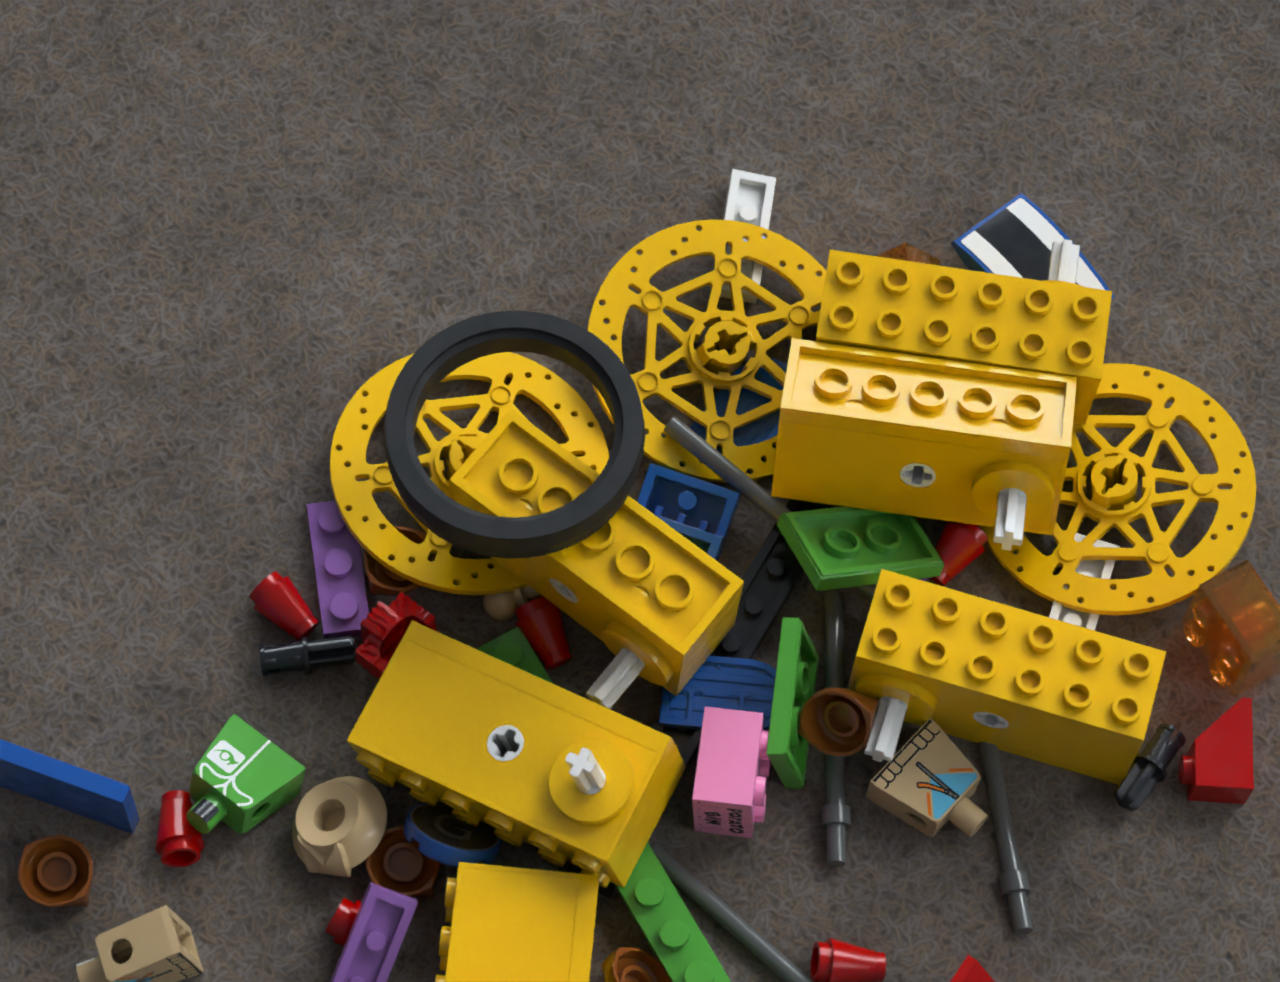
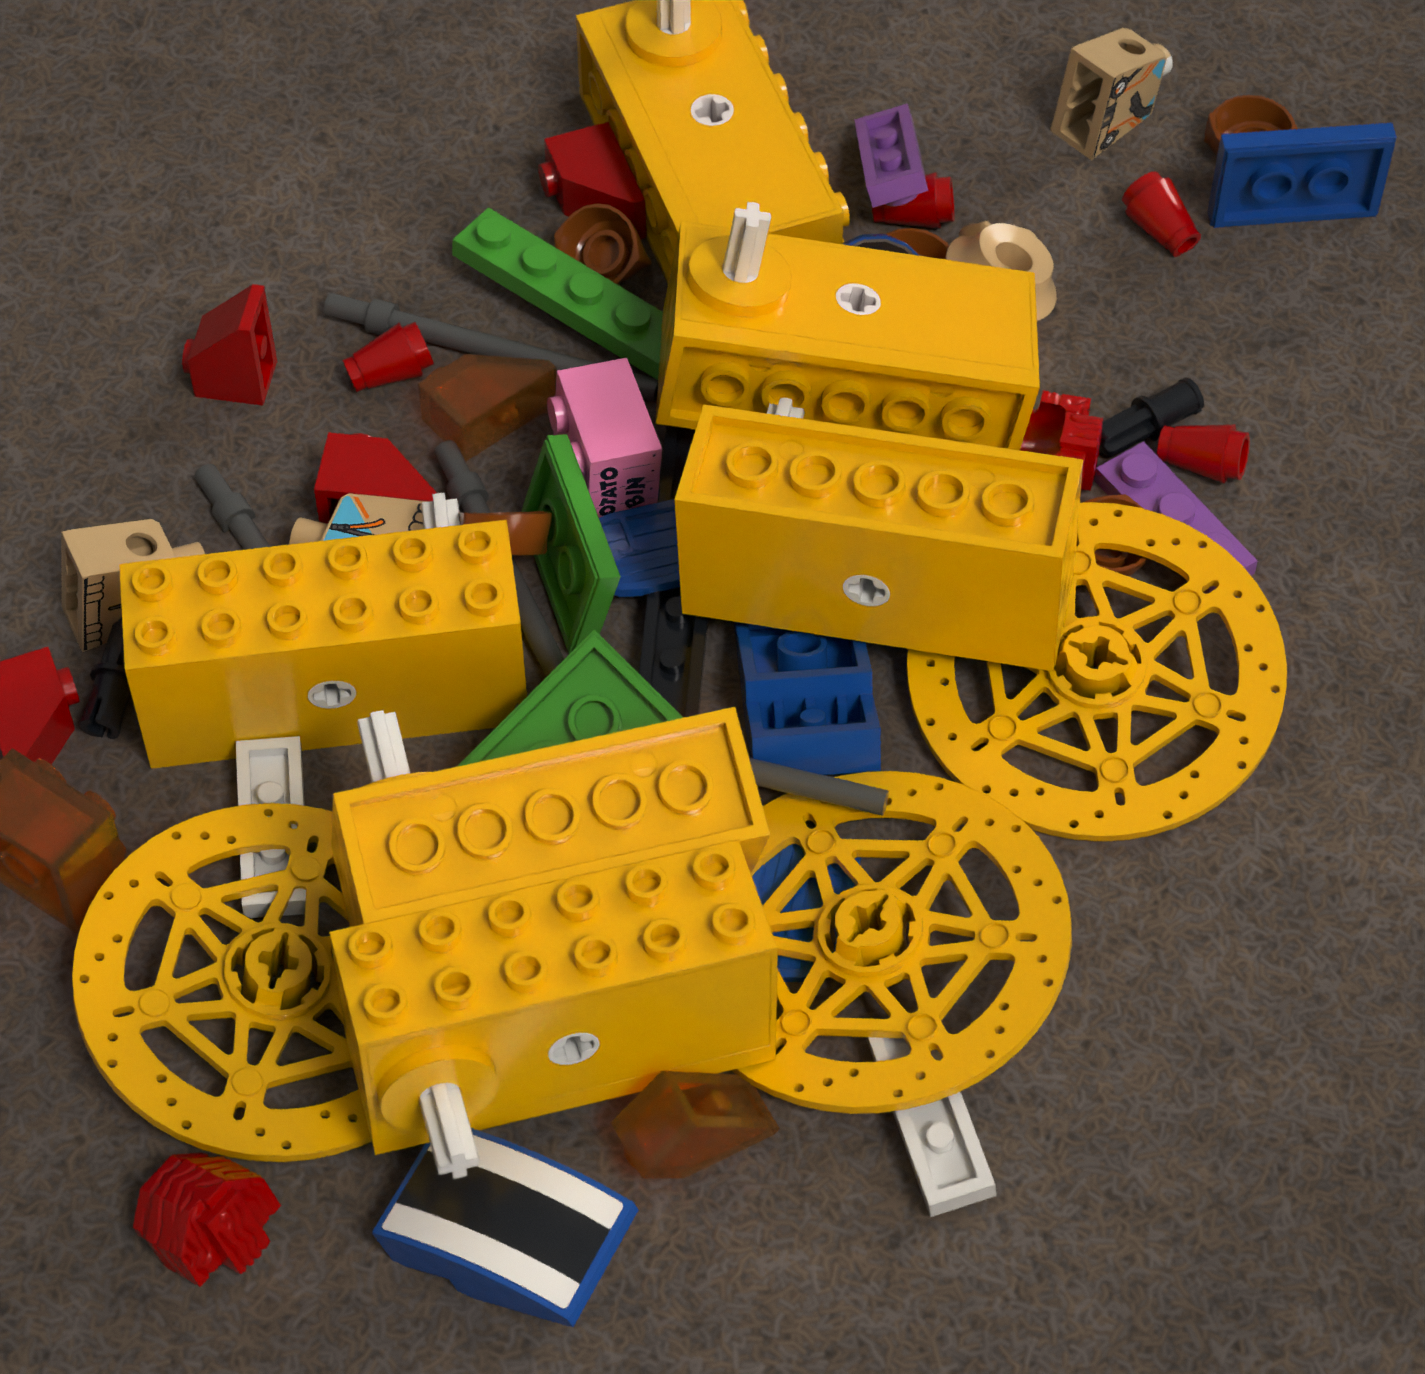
camera: 160 degrees right, 10 degrees down
(241, 779) = (1128, 264): bright green torso -> none
(514, 333) = (1015, 640): black tyre -> none
(792, 885) = (485, 398): none -> clear orange slope
(906, 843) = (365, 467): none -> red slope
(1134, 822) = (93, 573): none -> tan torso
(1209, 355) = (204, 1215): none -> red hair

